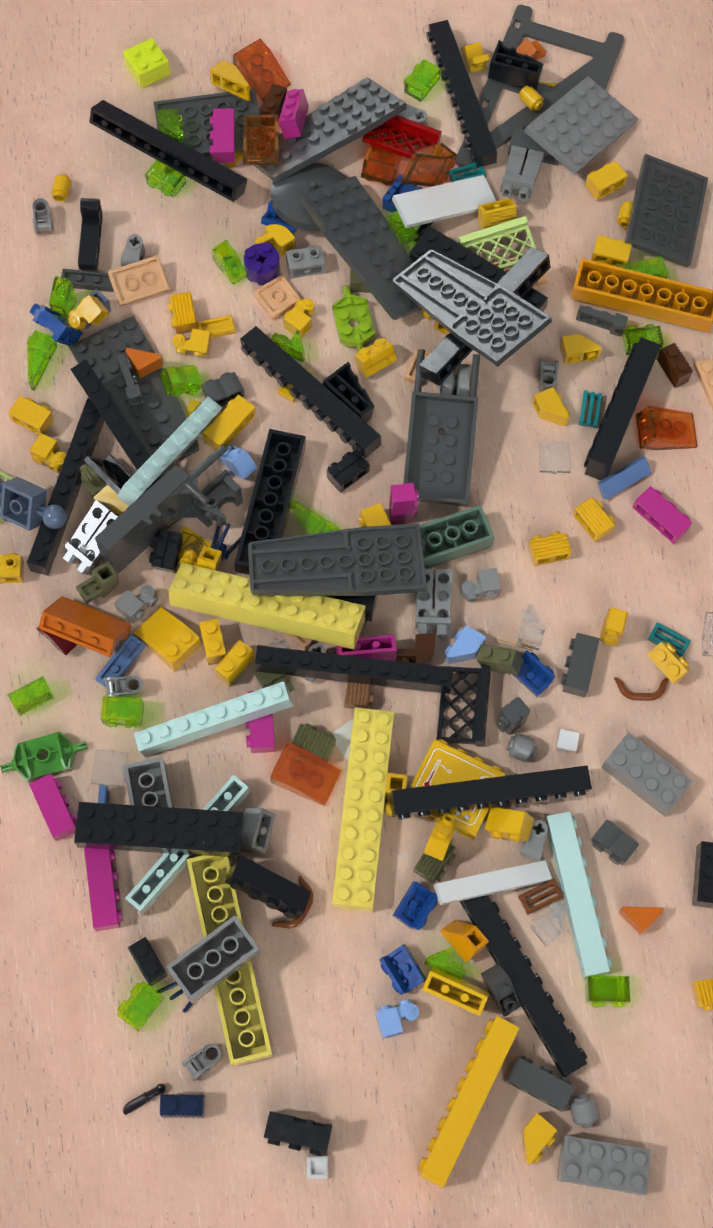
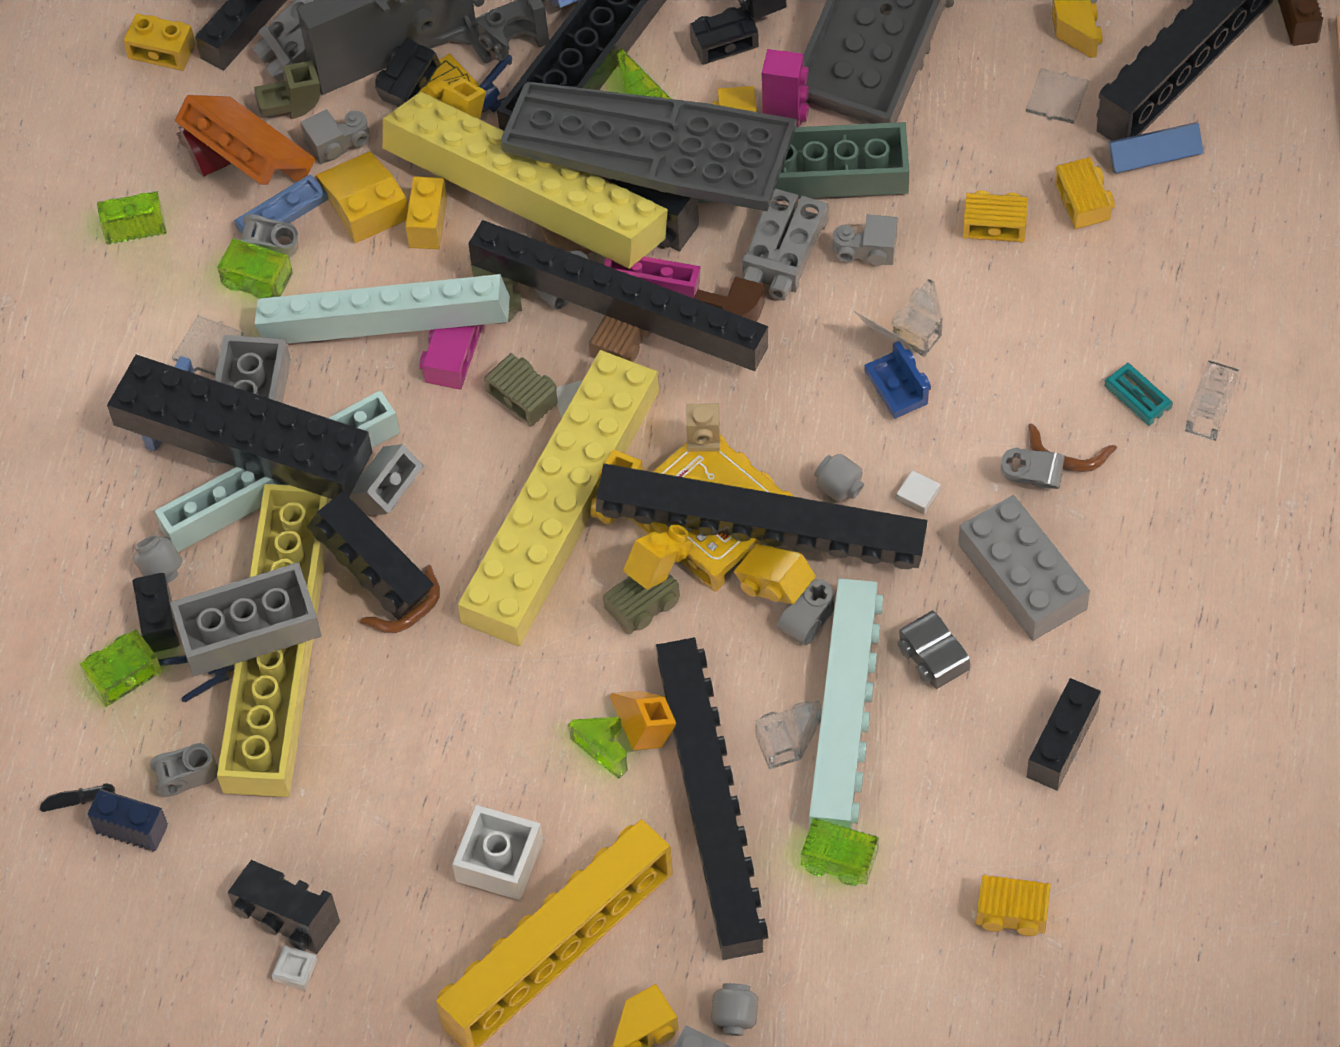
camera: 25 degrees right, 10 degrees down
(54, 806) = (102, 366): dark pink brick -> none
(60, 756) = (141, 308): bright green plate -> none
(102, 889) = (131, 496): dark pink brick -> none
(135, 926) = (157, 556): none -> light grey head
(234, 663) = (443, 249): yellow brick -> none
(304, 774) = (490, 426): clear orange slope -> none
(390, 1018) = (492, 791): light blue brick -> none
(402, 970) = (531, 733): blue bracket -> none
(413, 1057) = (498, 852): none -> white brick
(415, 906) = (585, 650): blue bracket -> none
(436, 743) = (703, 427): none -> tan brick
(456, 991) = (600, 781): yellow brick -> none
(466, 645) = (808, 318): light blue slope -> none
(480, 712) = (800, 402): black fence -> none
(492, 882) = (716, 645): white tile -> none
(500, 659) = (851, 345): olive brick -> none
(501, 989) = (672, 803): dark grey slope -> none
(512, 716) = (840, 426): dark grey brick -> none
(526, 904) = (786, 700): dark orange tile -> none
(540, 1083) = (679, 950): dark grey brick -> none
(580, 664) = (979, 388): dark grey brick -> none
(592, 396) = (1149, 24): teal tile -> none
(613, 626) = (1050, 344): yellow brick -> none
(631, 707) = (1040, 469): none -> light grey piece
(640, 917) = (935, 765): orange slope -> none
(662, 514) = (1196, 213): dark pink brick -> none
(665, 429) = (1250, 95): clear orange slope -> none
(669, 662) = (1122, 419): yellow brick -> none

